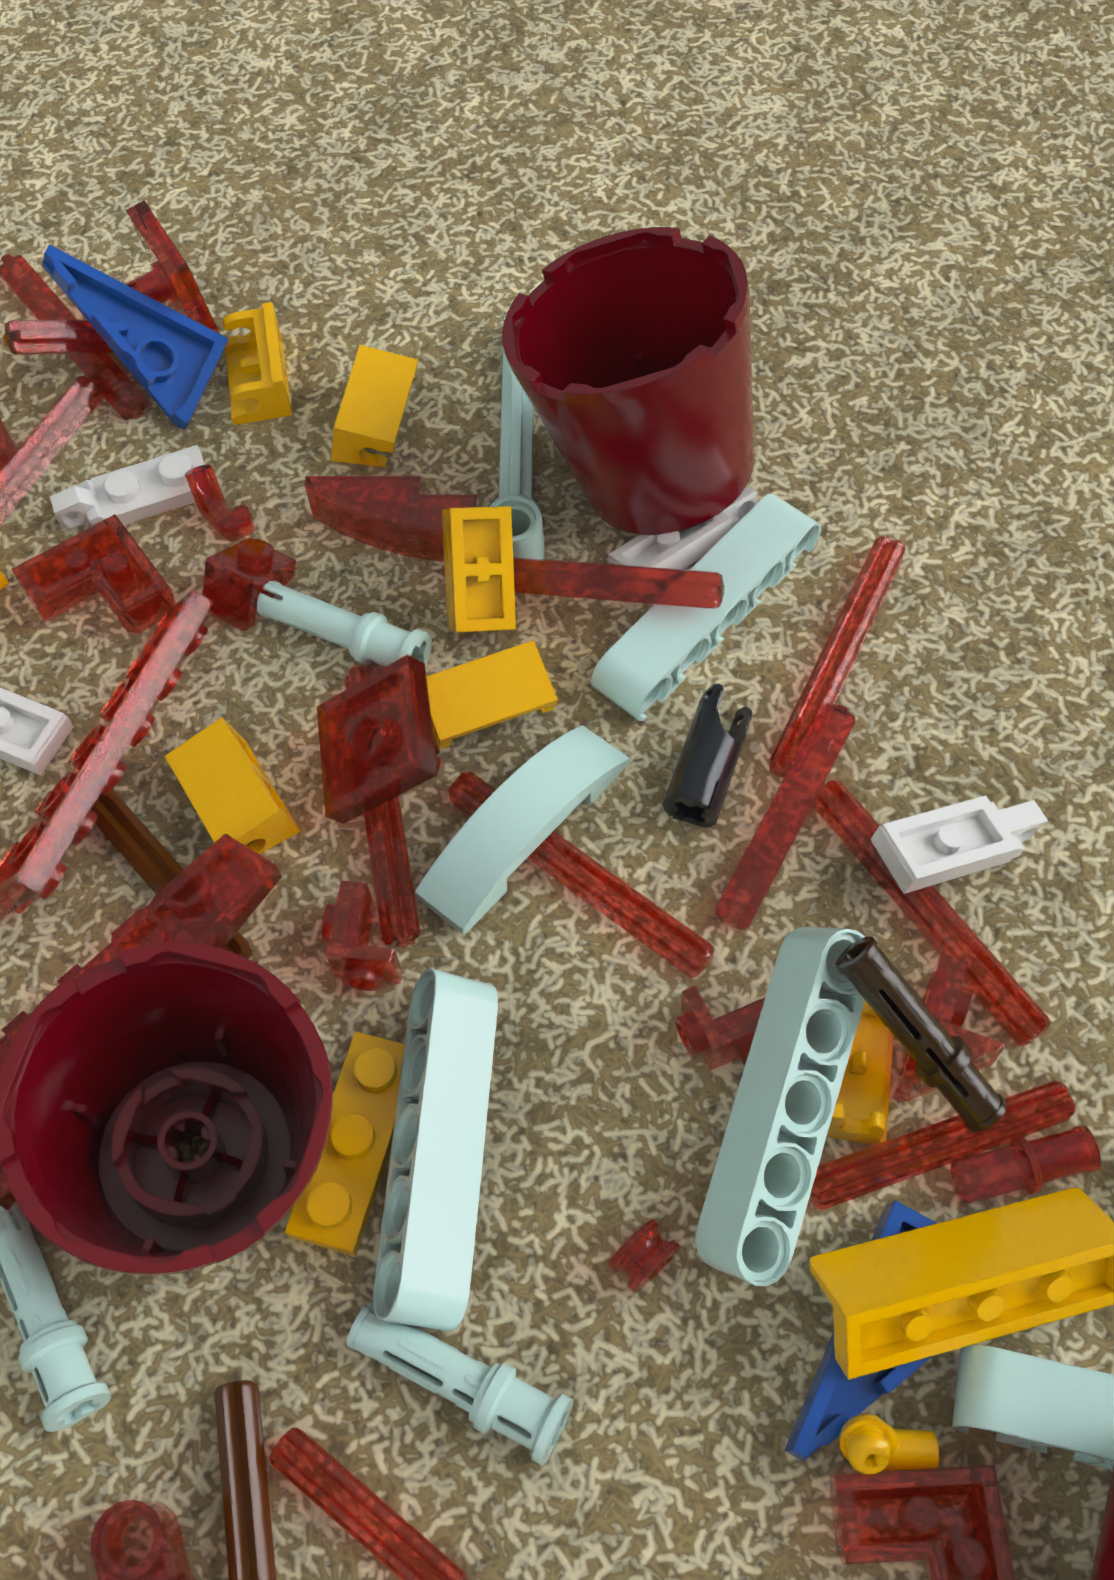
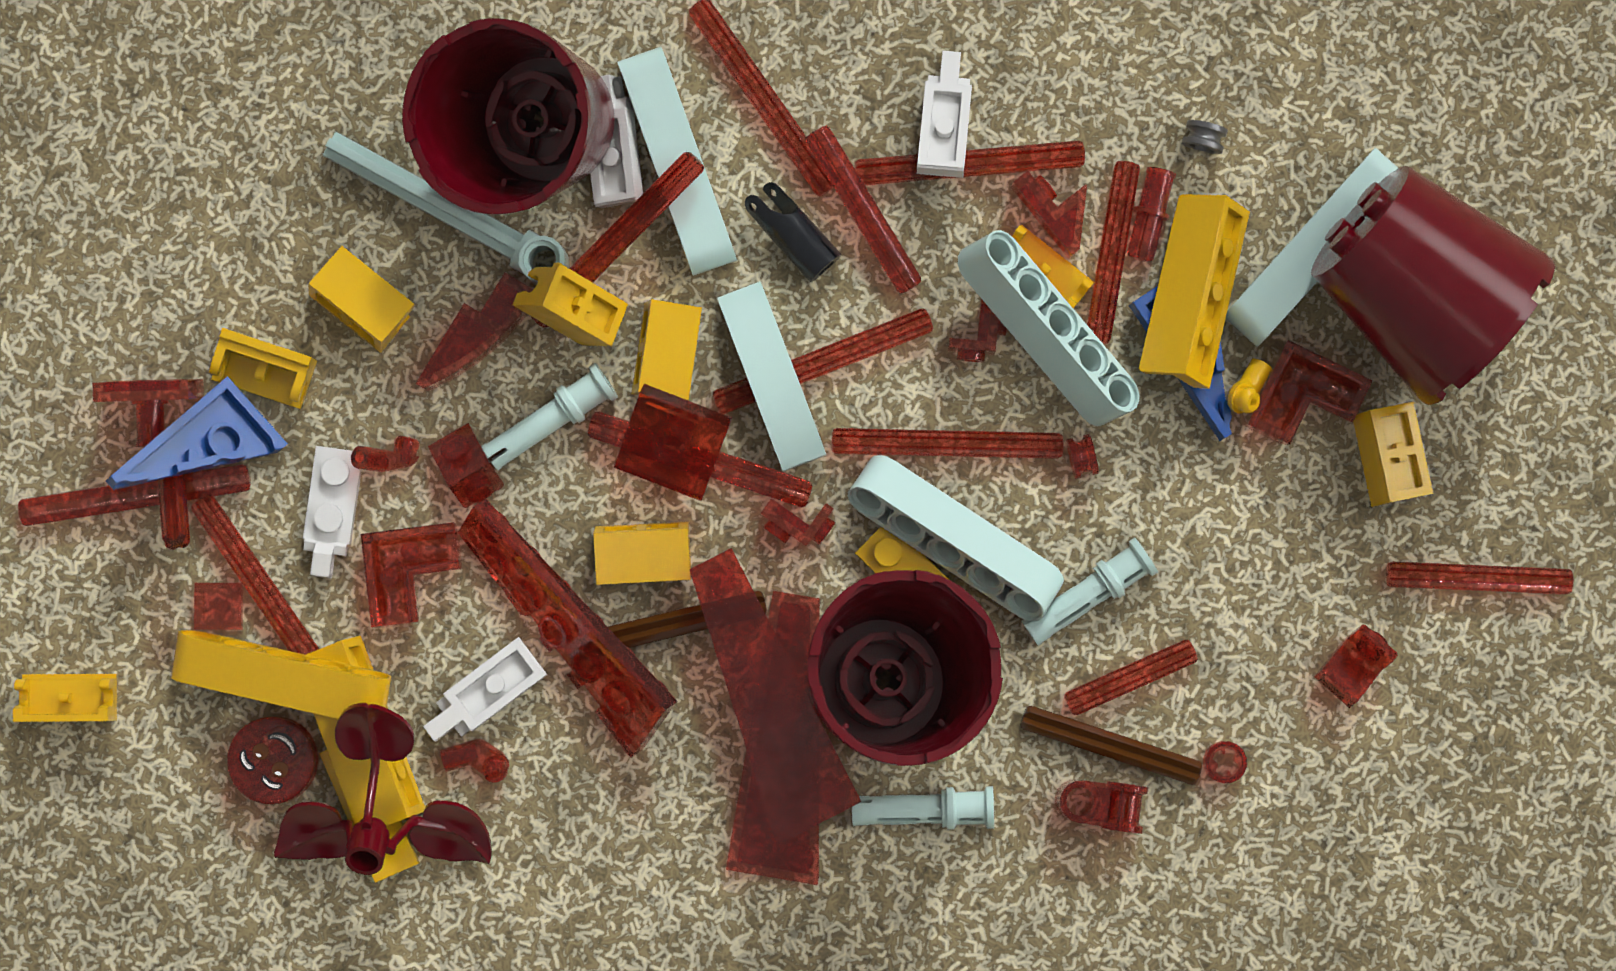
camera: 65 degrees left, 25 degrees up
(565, 1079) = (947, 443): none -> clear red axle
(939, 1057) = (1077, 230): dark brown pin -> none

